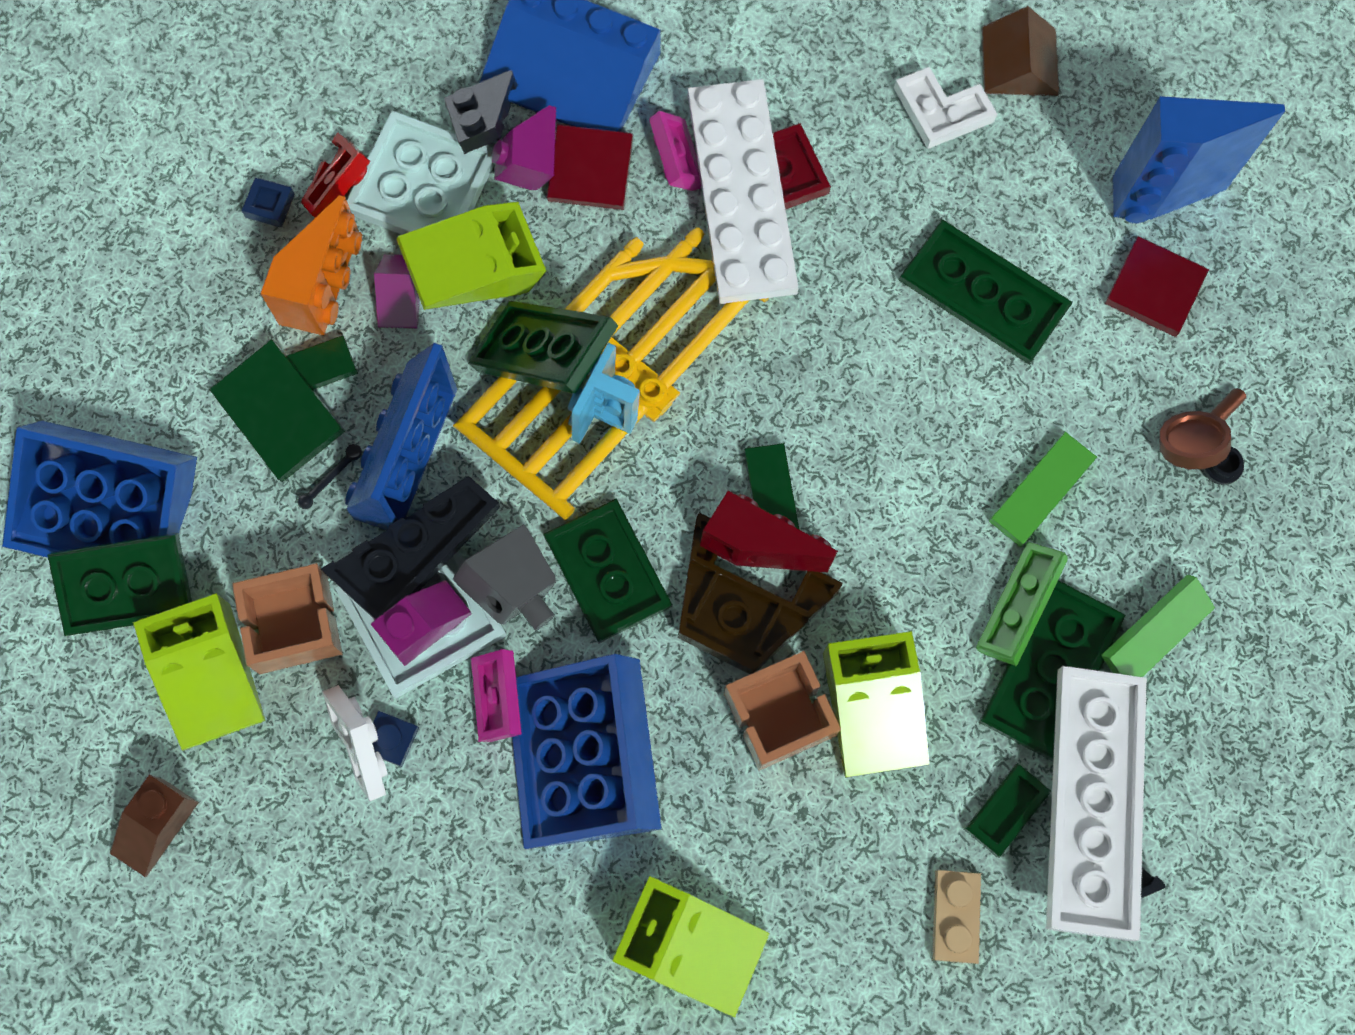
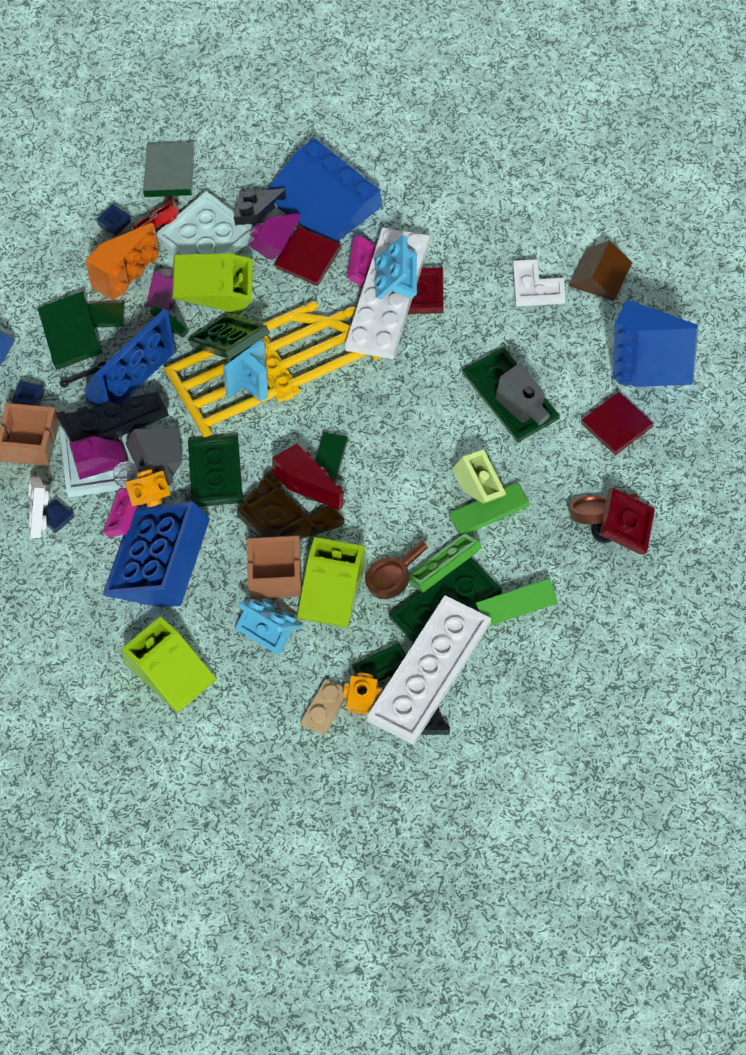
camera: 30 degrees right, 15 degrees down
(257, 545) = (28, 394): none -> dark blue plate
(319, 93) = (169, 169): none -> tile
(417, 344) = (176, 326): none -> dark green tile
(477, 633) = (124, 472): none -> clear tile
(526, 650) = (147, 488): none -> light orange brick
(750, 153) = (396, 270): none -> medium azure bracket
(810, 808) = (266, 624): none -> medium azure bracket
(952, 655) = (390, 575): none -> copper piece
(1013, 881) = (361, 703): none -> light orange brick
(1015, 448) = (478, 477): none -> yellowish green slope
(1023, 294) = (522, 395): none -> dark grey torso
(1257, 442) = (627, 521): none -> dark red tile

